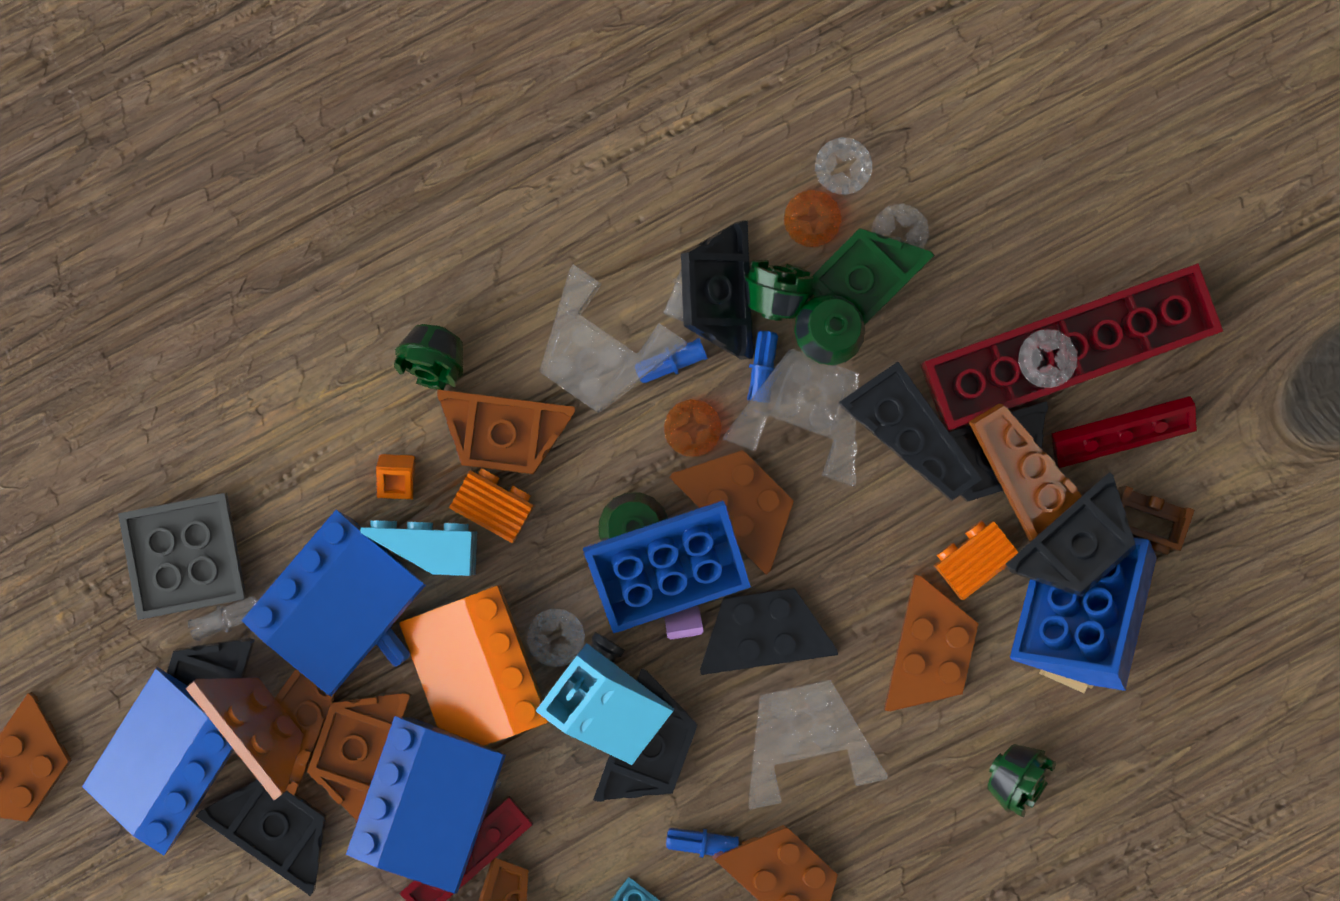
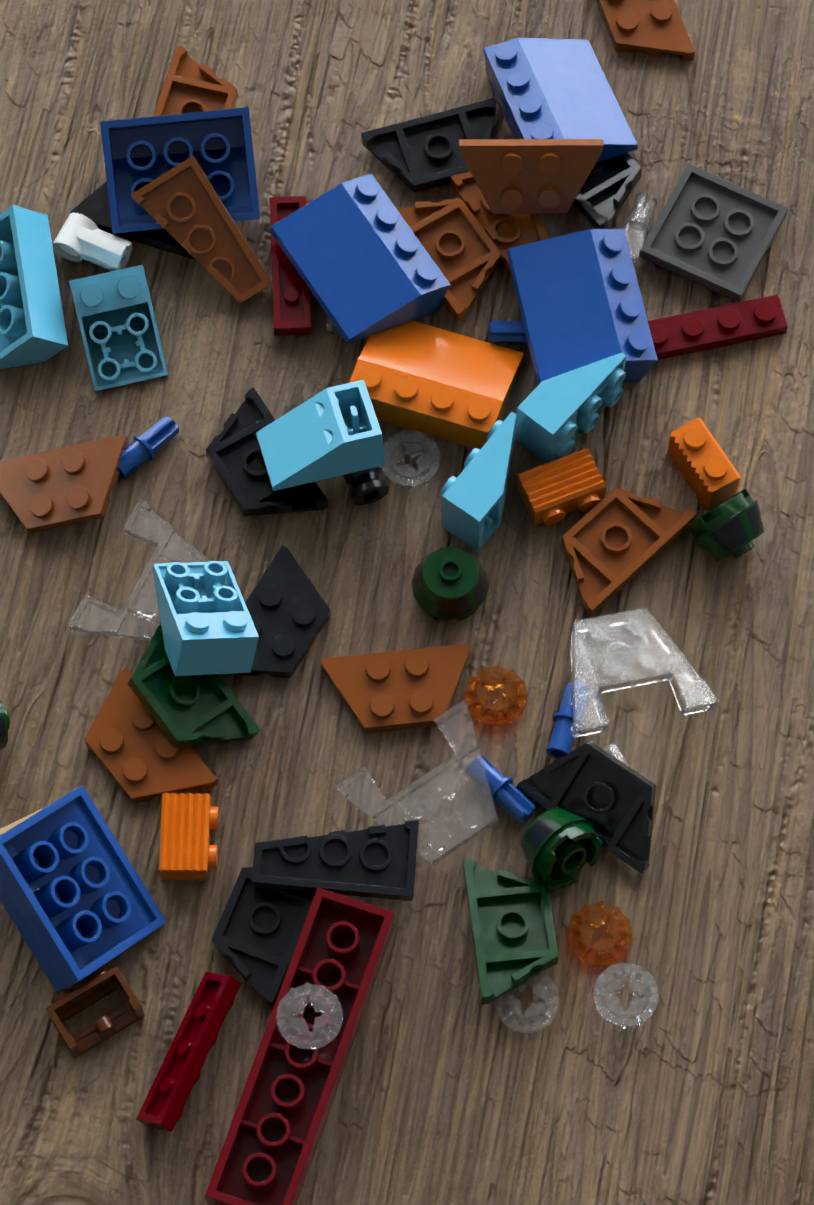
camera: 130 degrees right, 20 degrees down
(262, 494) = (718, 327): none -> dark red plate
(391, 414) = (703, 464): none -> orange brick
(395, 476) = (647, 436): orange slope -> none
(547, 555) = (476, 498): none -> medium azure slope
(667, 567) = (392, 571): blue slope -> none
(684, 623) = (336, 563): lavender slope -> none
(812, 678) = (204, 619): none -> medium azure slope
(829, 329) = (488, 858): dark green cone -> none
(872, 649) = (188, 707): none -> dark green wing
(1025, 472) = (213, 928): dark orange wing -> none
(1080, 543) = (127, 923): black wing -> none

